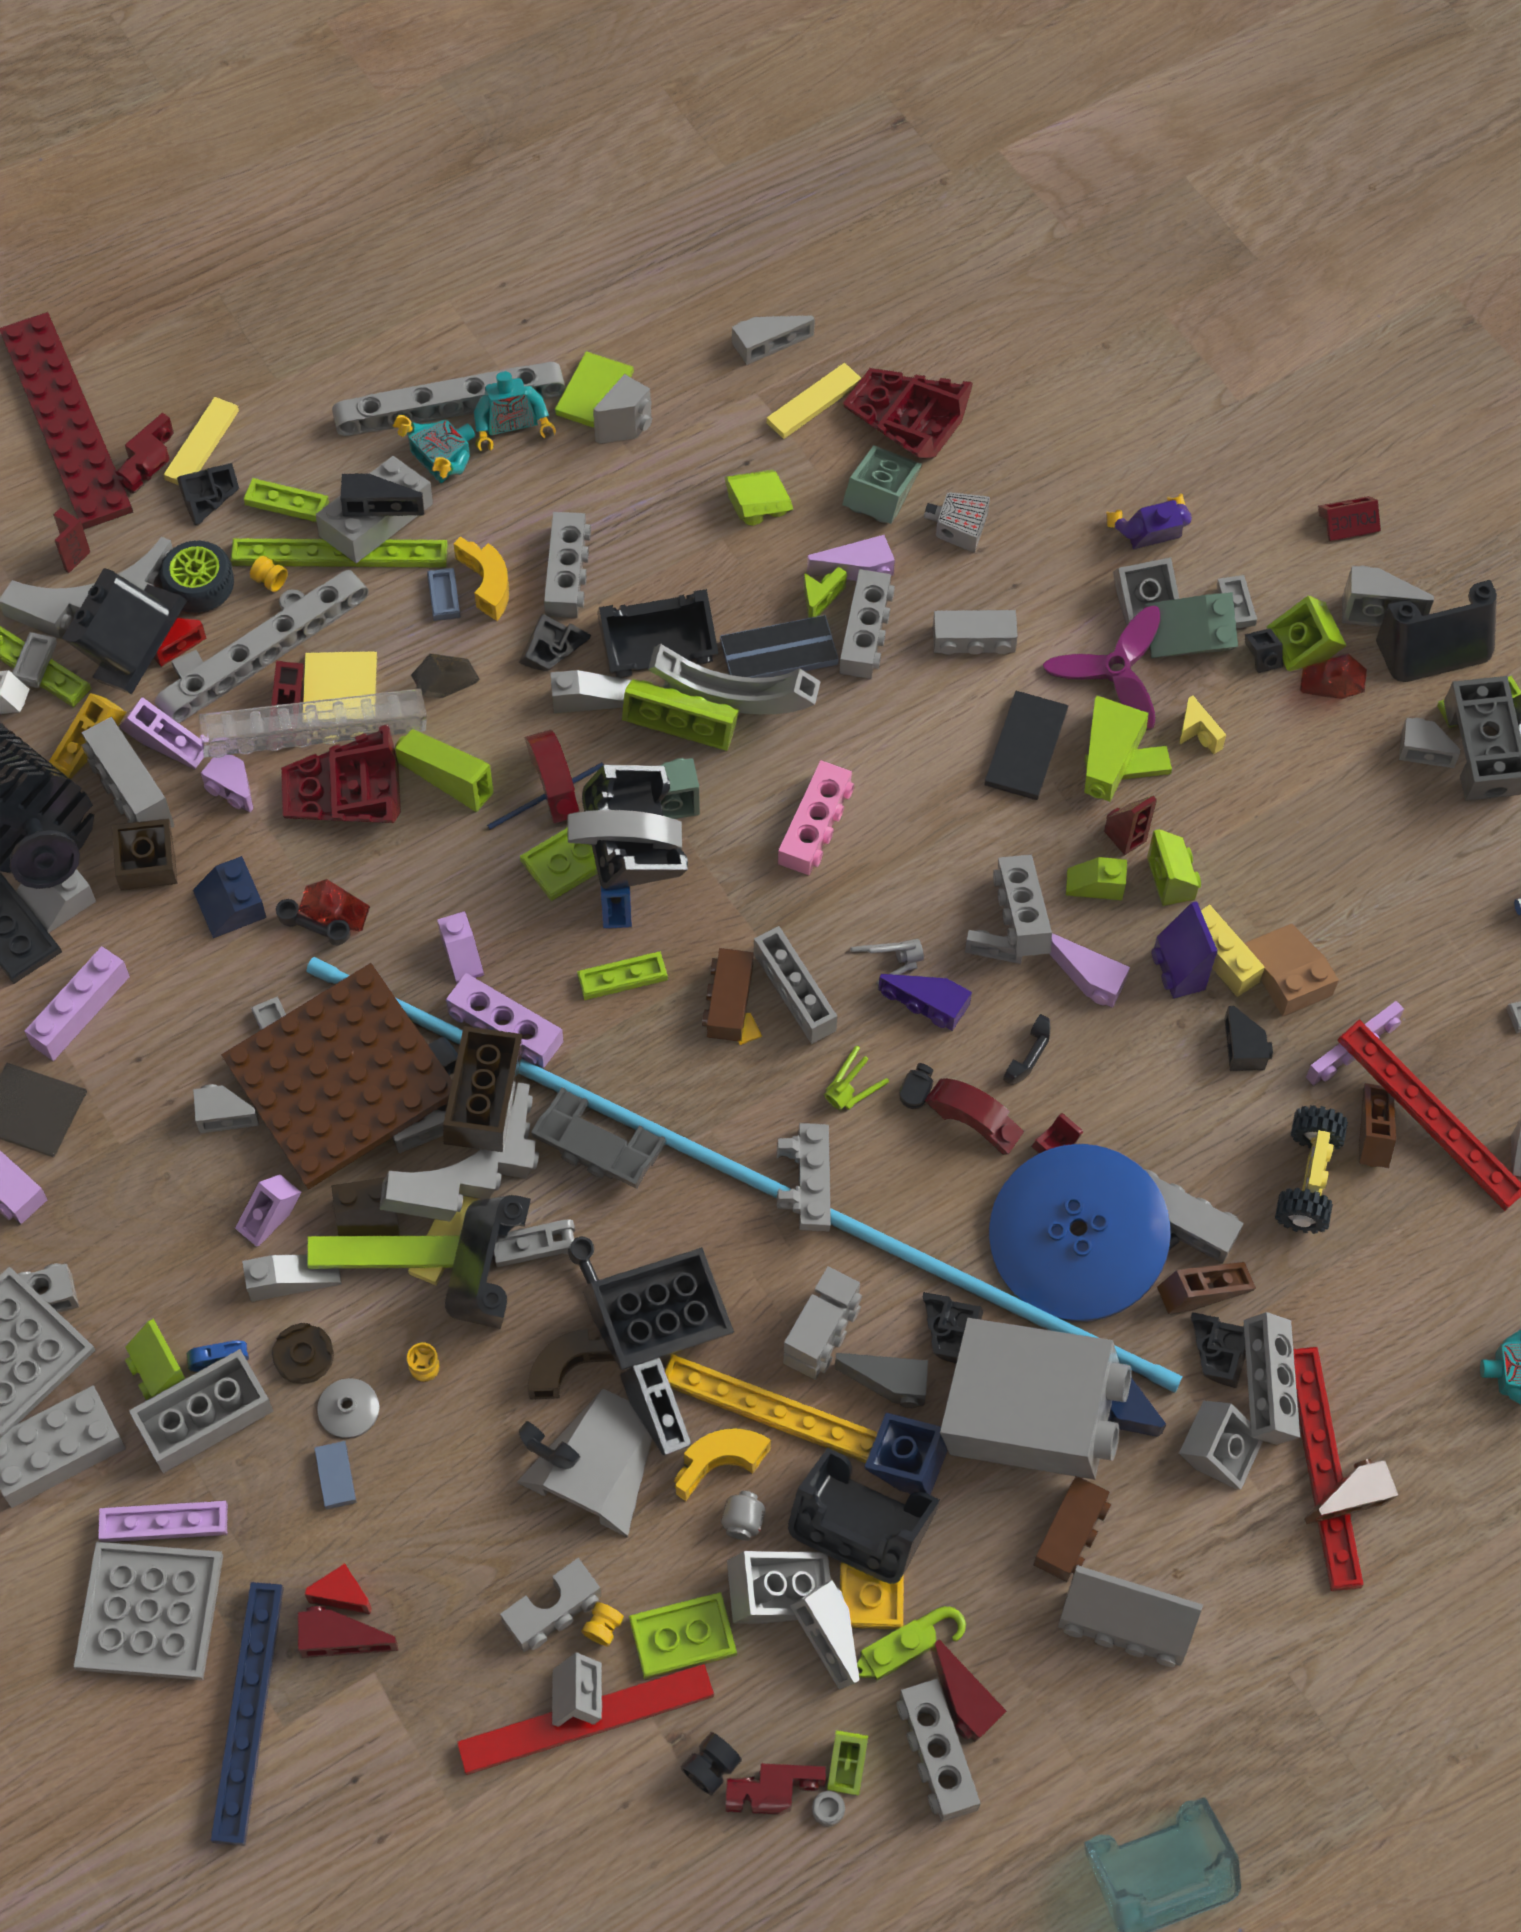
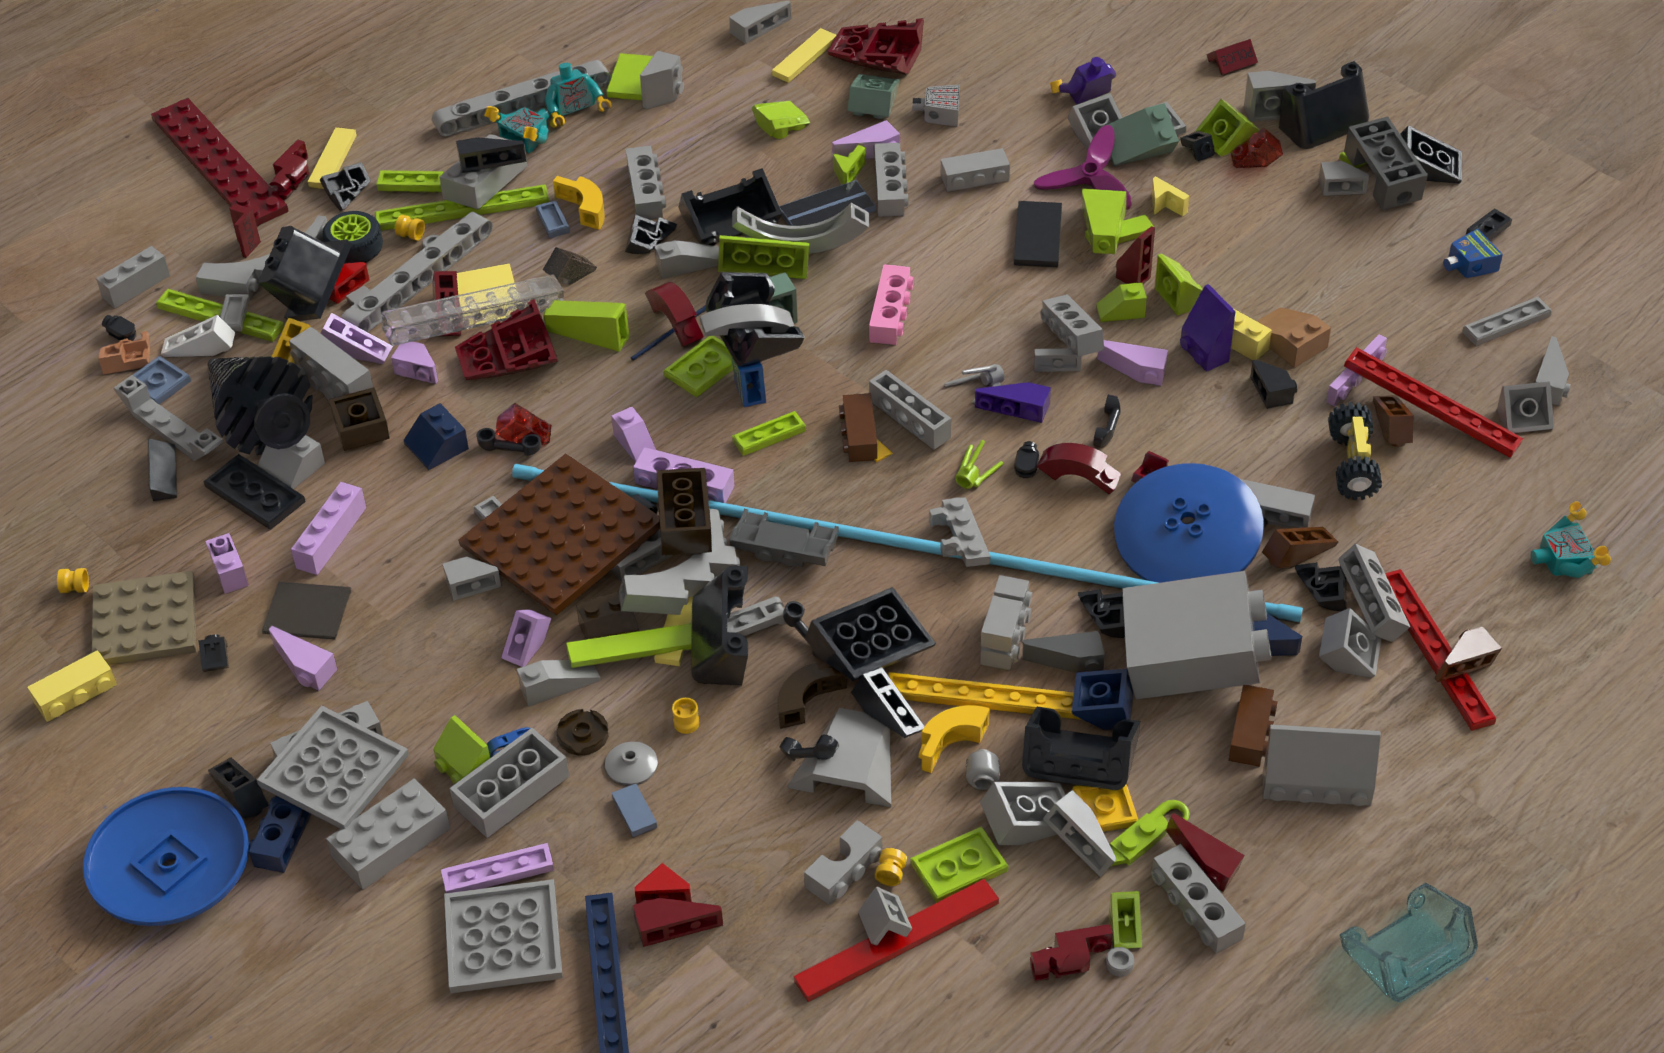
camera: 10 degrees left, 15 degrees down
(711, 1763) = (1013, 945): black wheel -> none

